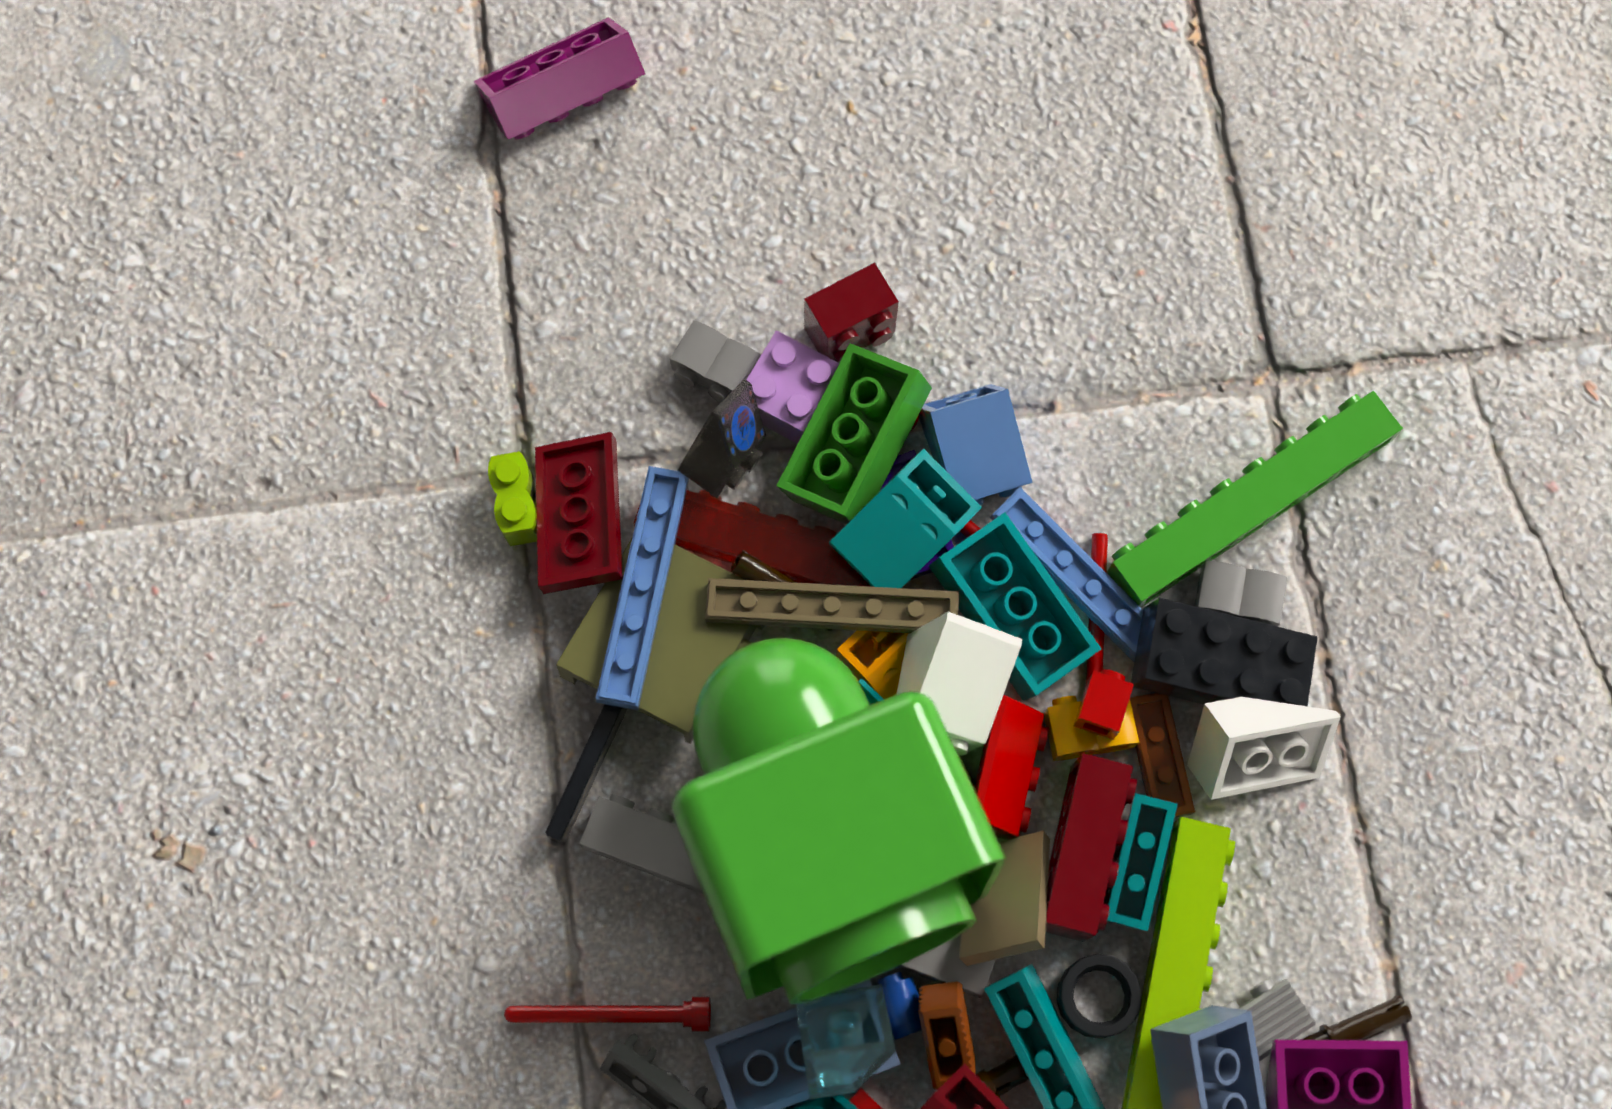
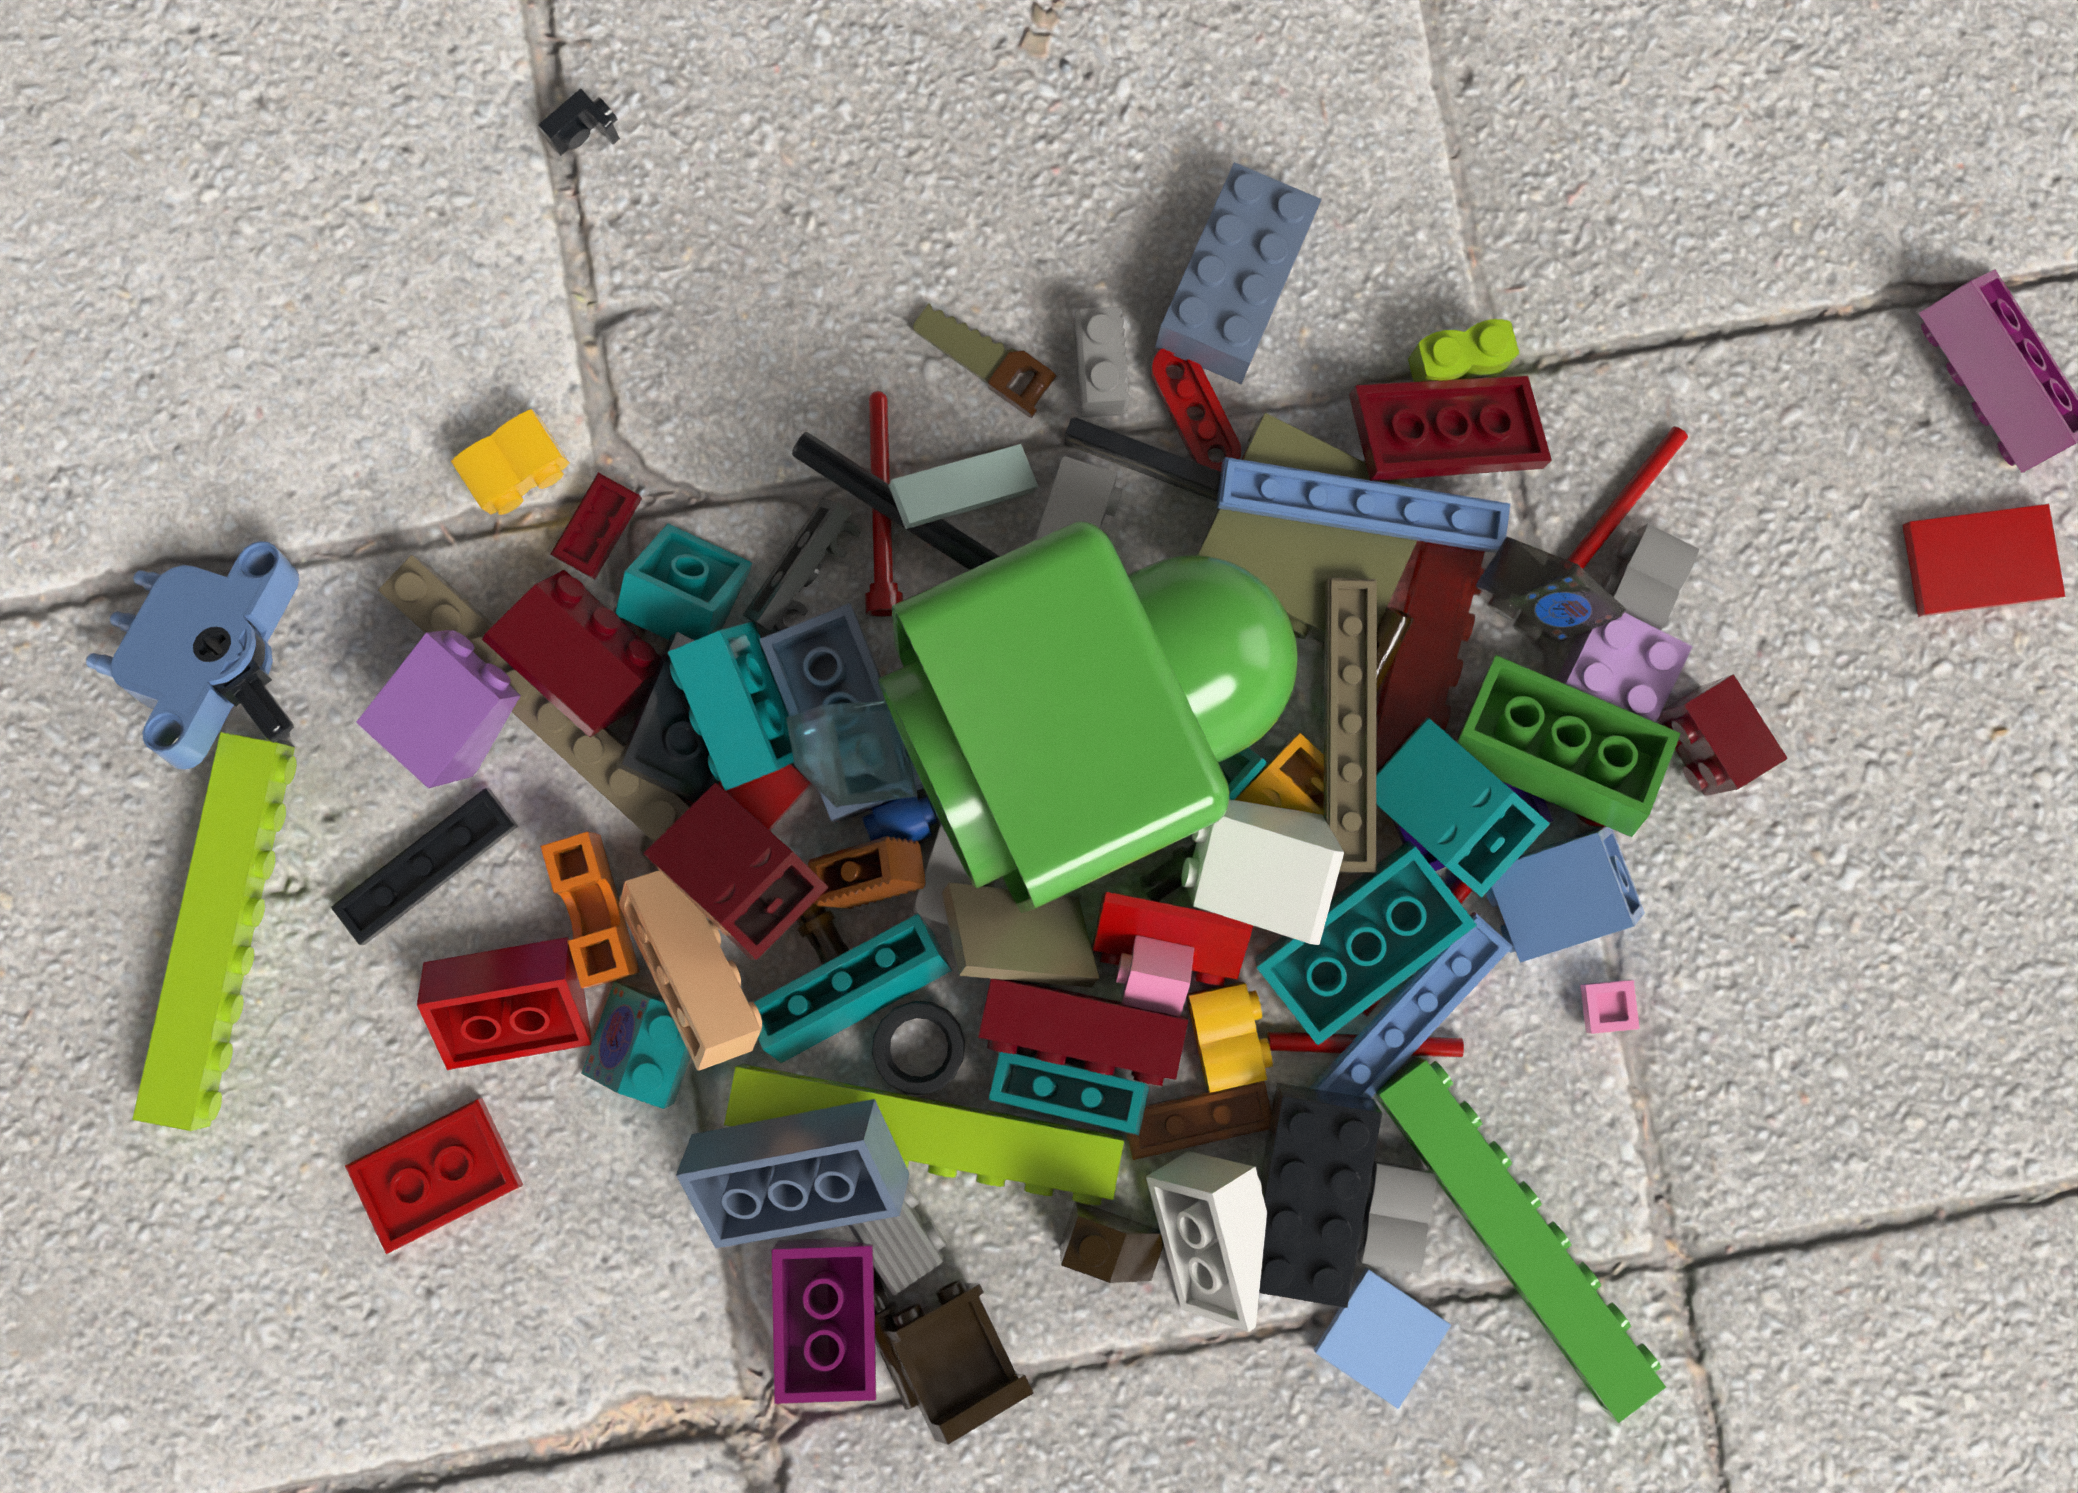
camera: 85 degrees right, 10 degrees up
(427, 683) = (1237, 272): none -> sand blue brick
(481, 914) = (985, 359): none -> piece
(495, 807) = (1101, 361): none -> light grey brick
(525, 727) = (1194, 391): none -> red plate
(600, 936) = (963, 486): none -> light aqua tile
(613, 998) = (878, 495): none -> black axle
(646, 377) = (1628, 497): none -> red bar
(712, 108) = (1983, 560): none -> red tile
(1042, 780) = (1156, 975): none -> bright pink brick
(1067, 415) = (1609, 1006): none -> bright pink plate
(1104, 703) = (1251, 1048): red brick -> none
(1268, 836) = (1109, 1245): none -> dark brown slope
(1339, 611) = (1382, 1338): none -> light blue tile
(1371, 972) = (955, 1362): none -> dark brown panel

